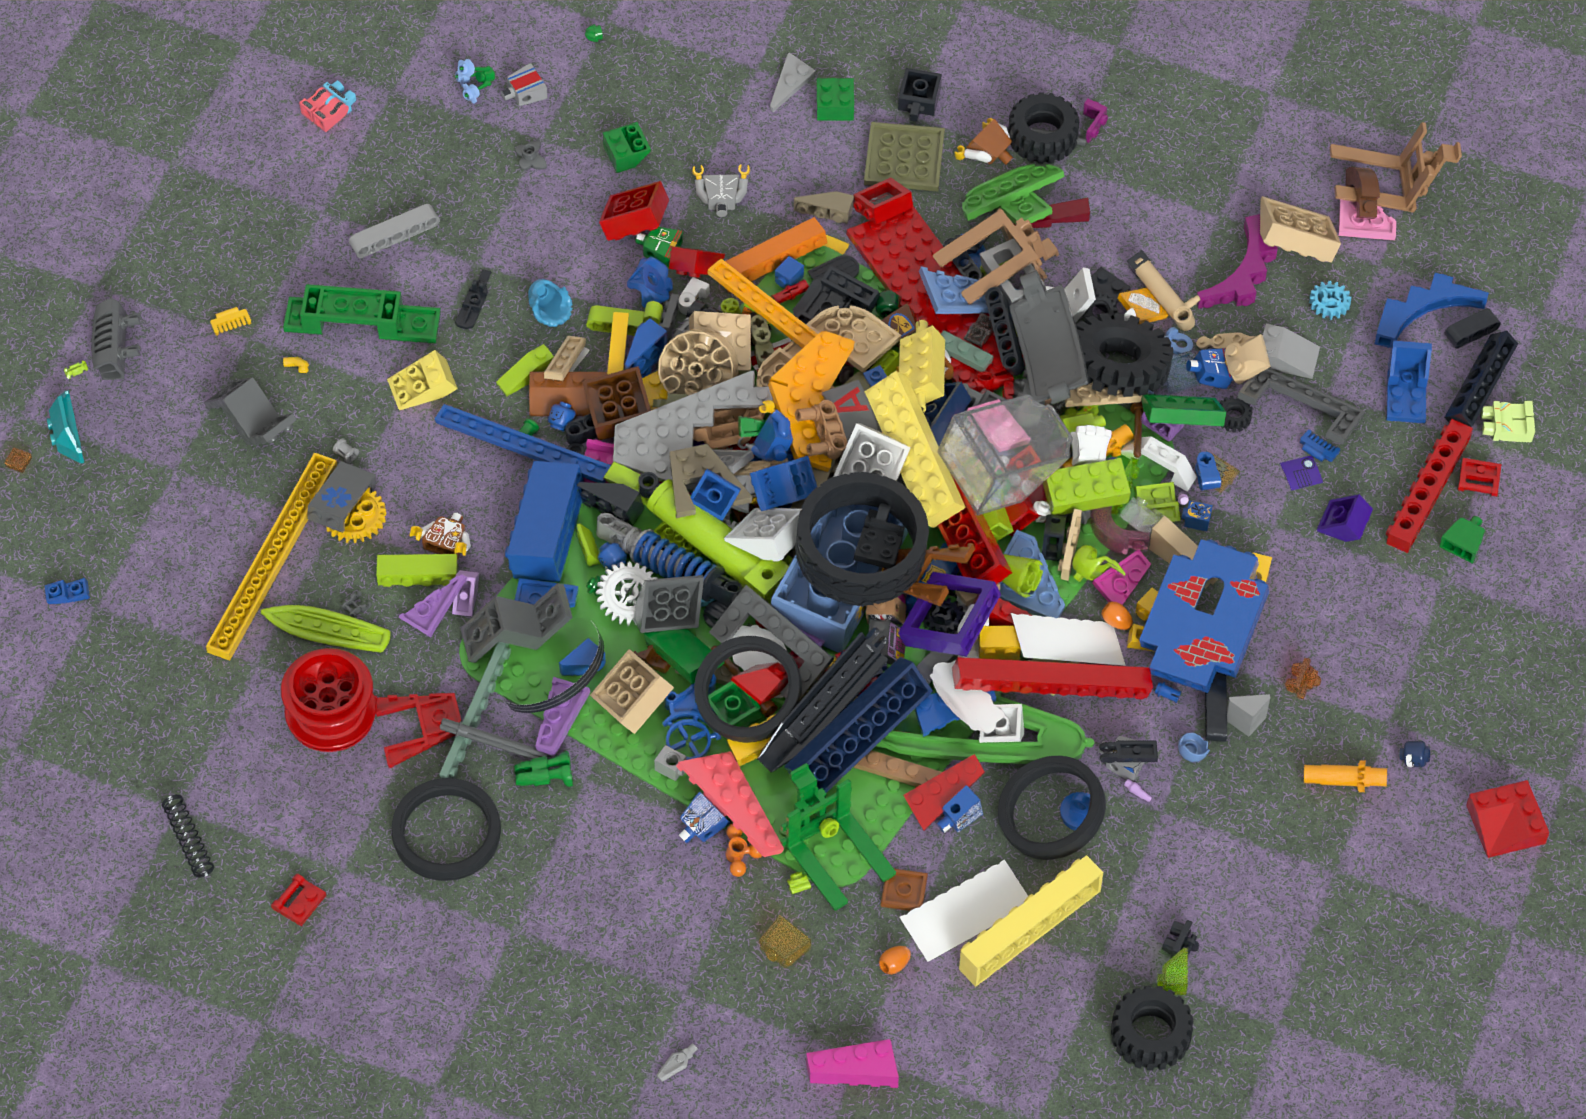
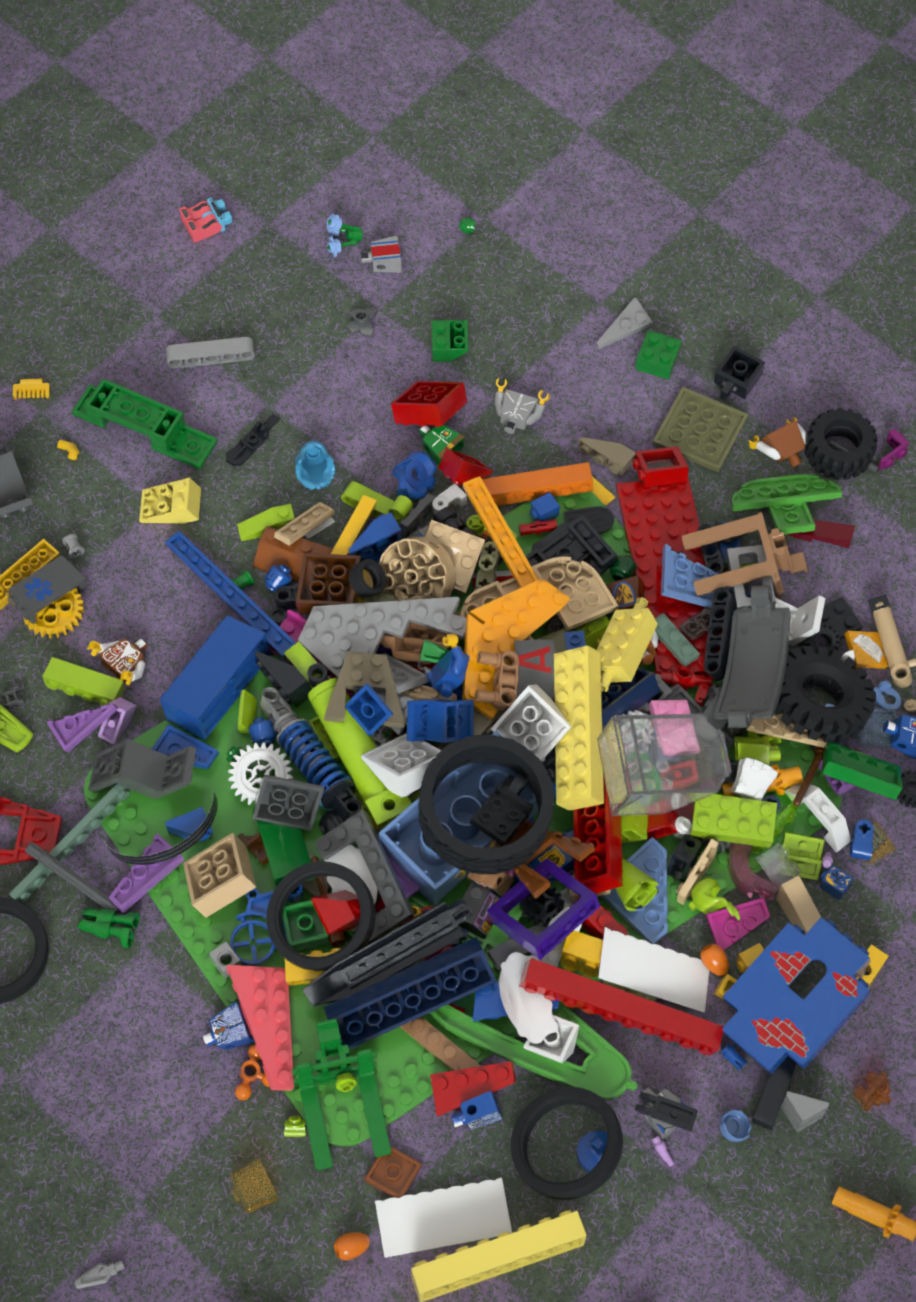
camera: 20 degrees right, 5 degrees up
(660, 378) = (357, 580): none -> black tyre

